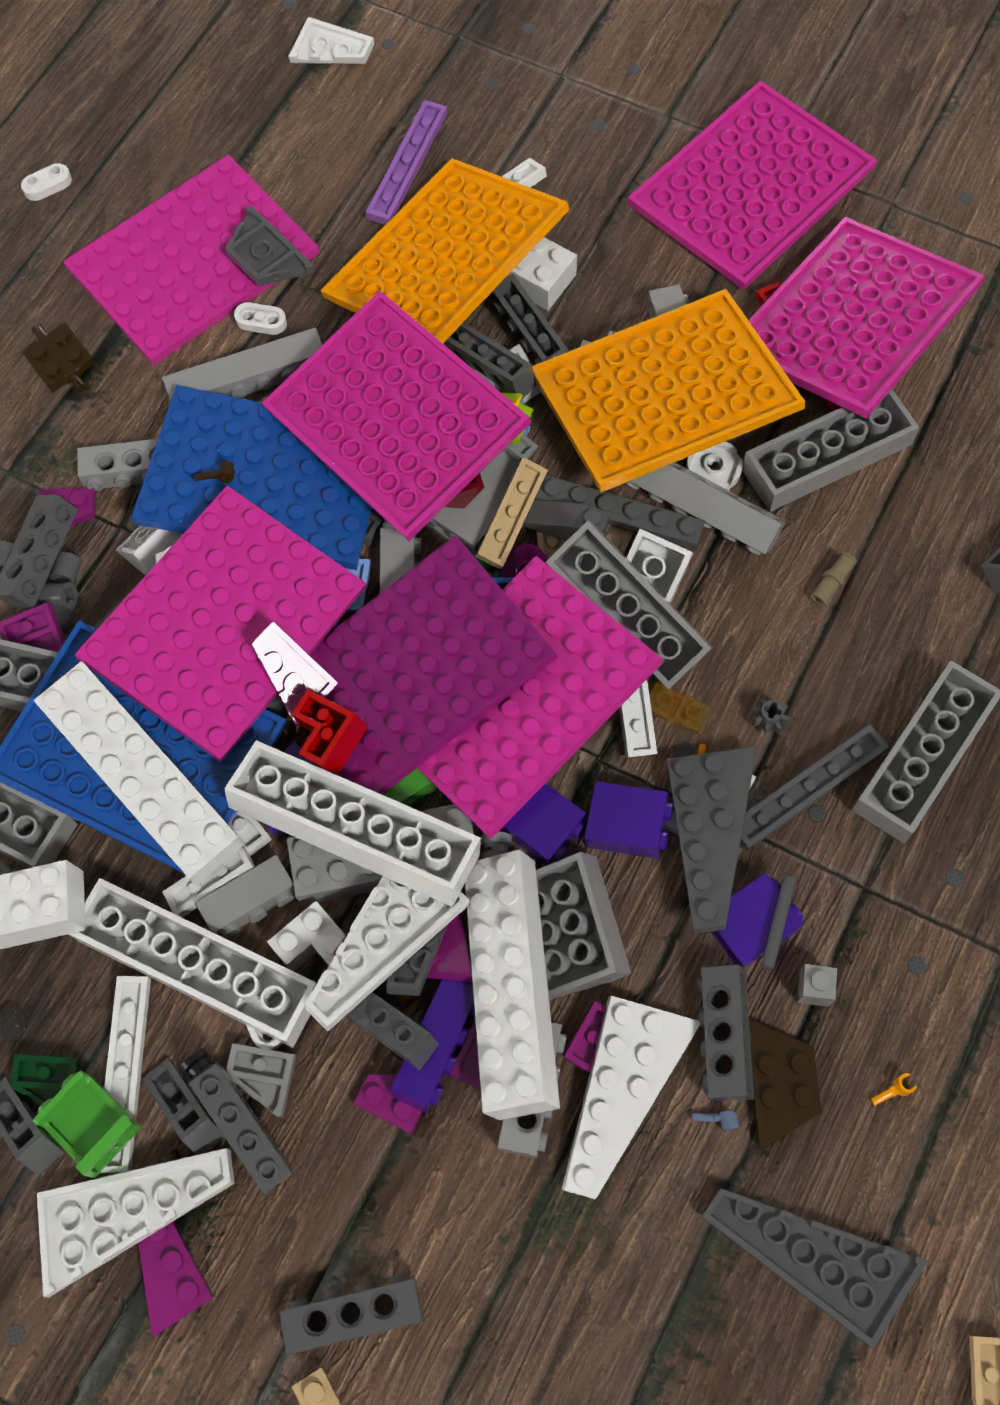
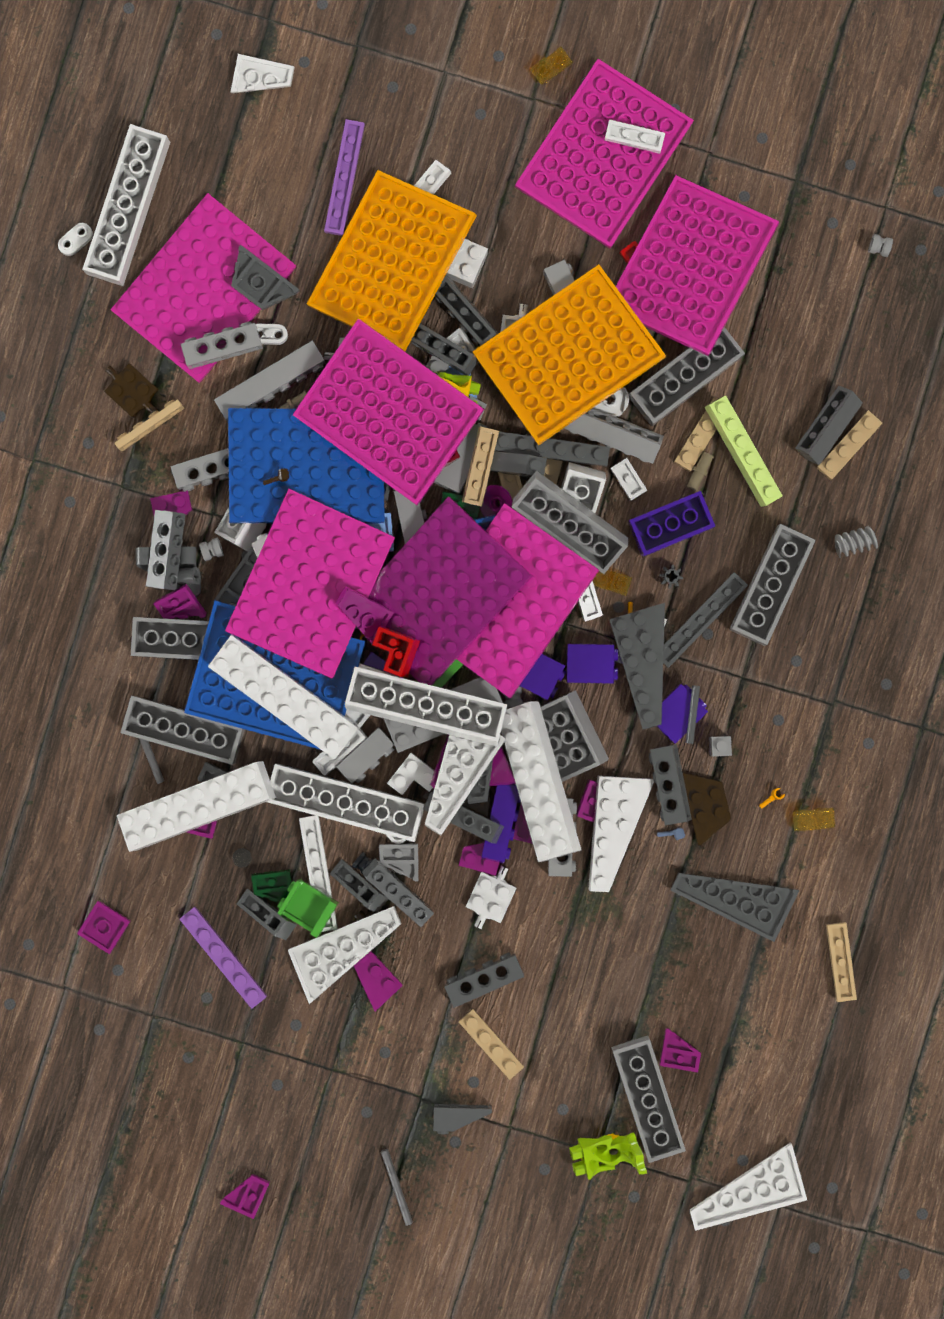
camera: 15 degrees left, 20 degrees up
(67, 399) = (155, 420): none -> tan plate
(102, 566) = (211, 549): none -> light grey wheel
(119, 149) = (126, 205): none -> white brick
(191, 314) = (195, 359): none -> light grey brick
(395, 1170) = (491, 897): none -> white plate
(699, 85) = (551, 66): none -> clear yellow slope
(726, 573) = (628, 479): none -> white plate
(781, 639) = (671, 524): none -> dark purple brick
(796, 162) = (634, 136): none -> white plate
(842, 533) = (696, 442): none -> tan plate
(903, 557) = (743, 451): none -> yellowish green brick
(963, 1138) = (814, 819): none -> clear yellow slope

